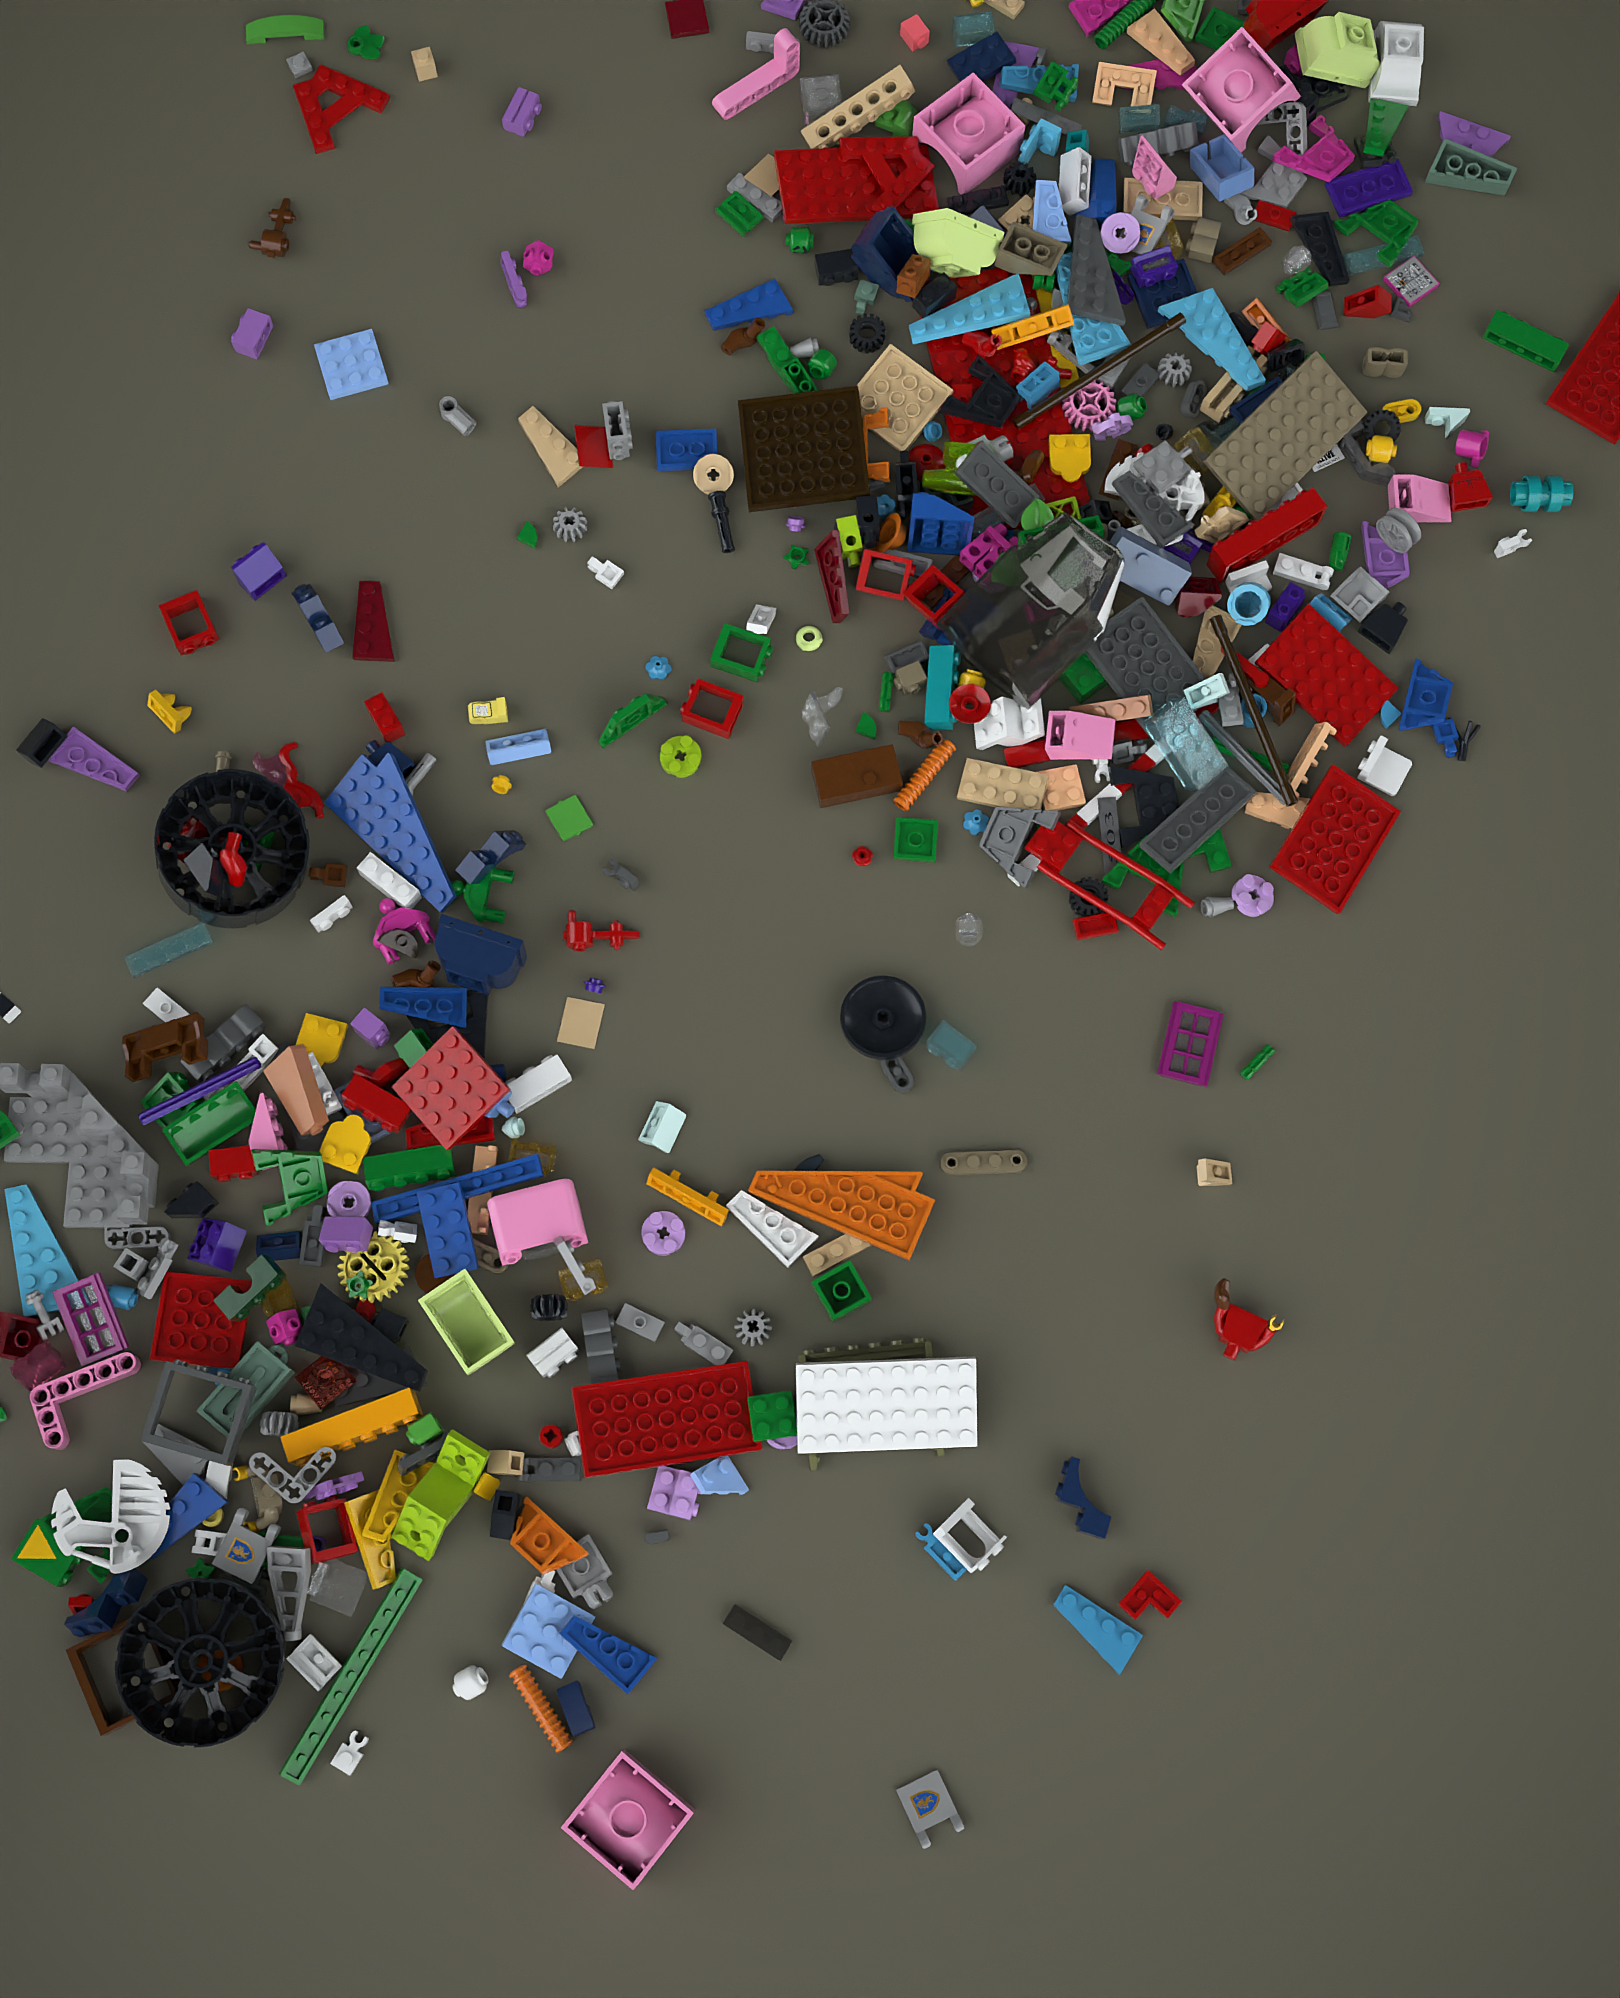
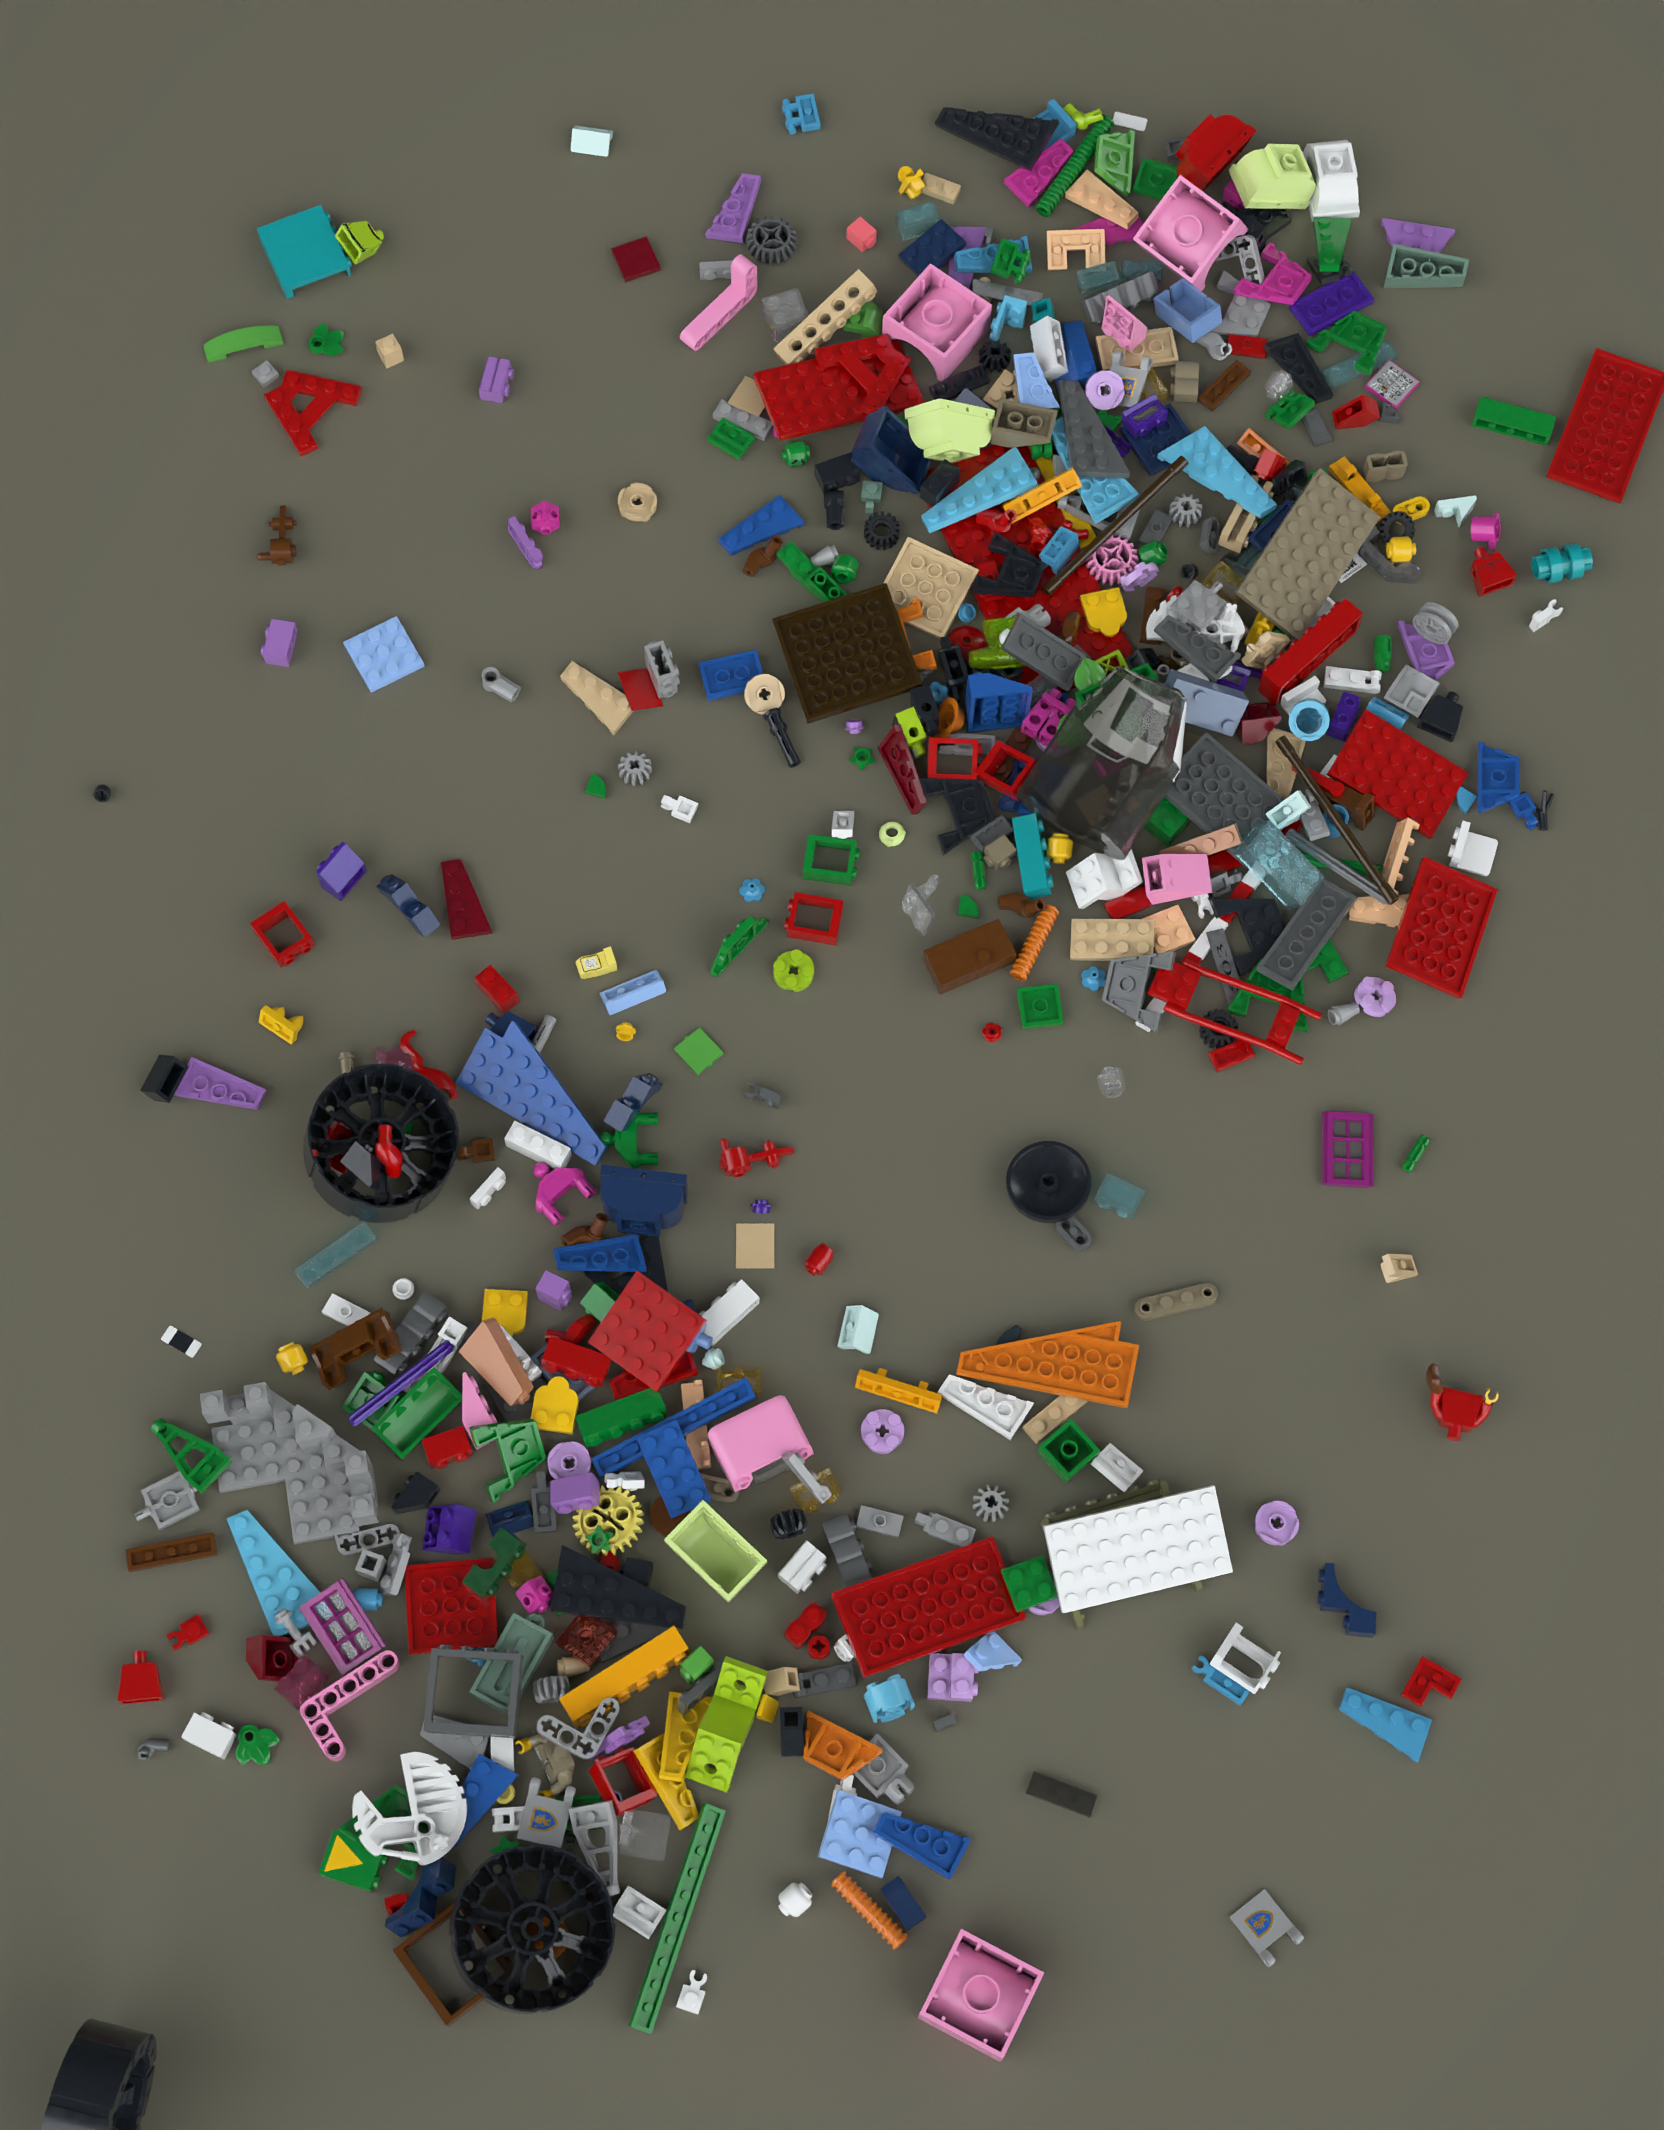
camera: 10 degrees left, 5 degrees down
(44, 449) = (98, 793): none -> black hinge
(102, 1044) = (291, 1358): none -> yellow head
(227, 997) = (403, 1289): none -> white plate
(401, 941) = (562, 1200): plate -> none
(537, 1415) = (810, 1621): none -> red brick
(607, 1502) = (888, 1699): none -> medium azure brick
(629, 250) = (637, 512): none -> tan plate
(639, 1049) = (819, 1259): none -> red brick
(826, 298) = (834, 509): none -> black piece
(886, 1317) = (1117, 1467): none -> white plate
(889, 625) = (967, 805): none -> black wing
(913, 275) = (917, 468): dark orange brick -> none
(972, 695) = (1067, 858): red dish -> none
(1045, 1403) = (1265, 1528): none -> lavender plate
(1353, 378) = (1358, 486): none -> light orange hinge
(1420, 497) = (1448, 587): bright pink slope -> none

